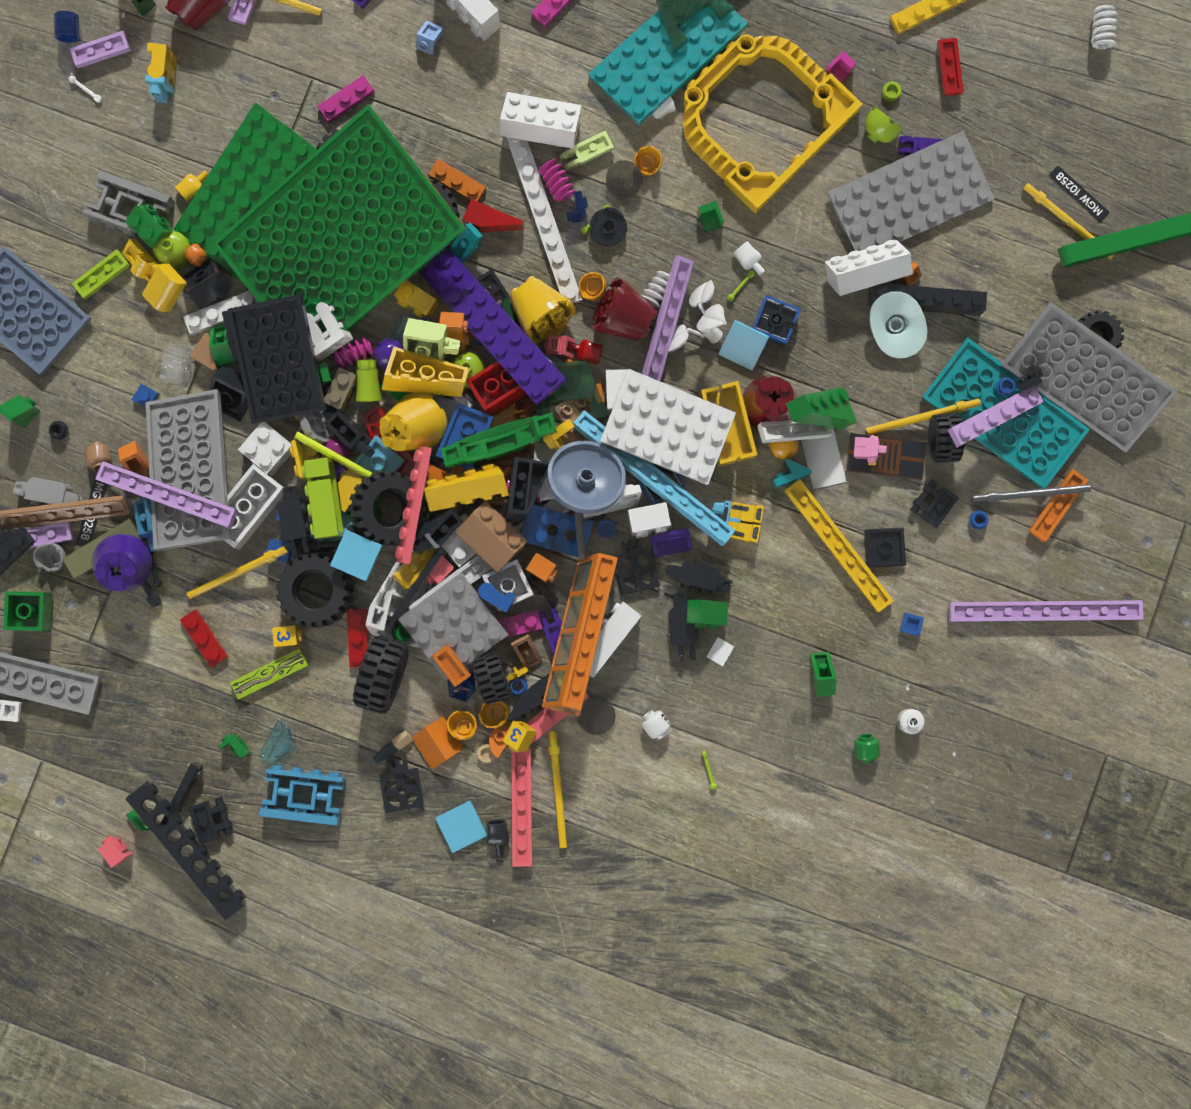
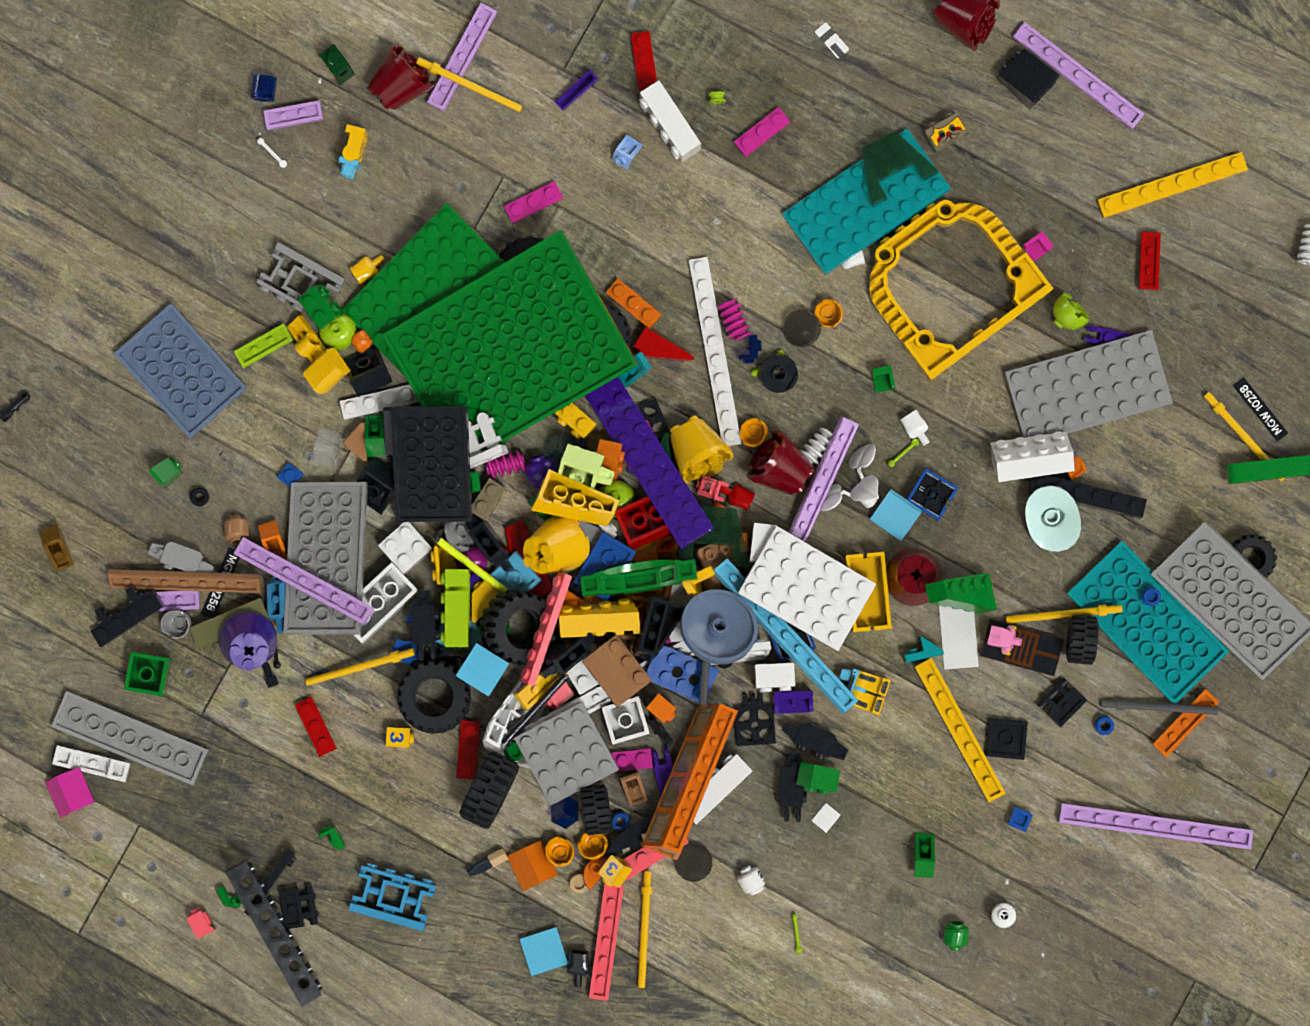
camera: 10 degrees right, 0 degrees up
(269, 673) = (375, 772): lime tile -> none
(278, 743) = (375, 841): clear light blue slope -> none
(367, 381) = (516, 496): lime plant -> none
(399, 771) = (489, 887): black piece -> none
(451, 665) = (559, 791): orange tile -> none
(491, 595) = (607, 727): blue leg -> none
(516, 673) = (621, 808): yellow piece -> none
(540, 120) = (726, 257): white brick -> none
(588, 150) = (771, 292): yellowish green hinge -> none
(606, 528) = (731, 677): blue plate -> none
(784, 449) = (921, 620): light orange hair -> none
(790, 431) = (921, 609): white plate -> none
(891, 91) = (1086, 276): lime tile -> none
(995, 416) = (1132, 626): lavender plate -> none
(1027, 381) = (1172, 595): black bracket -> none

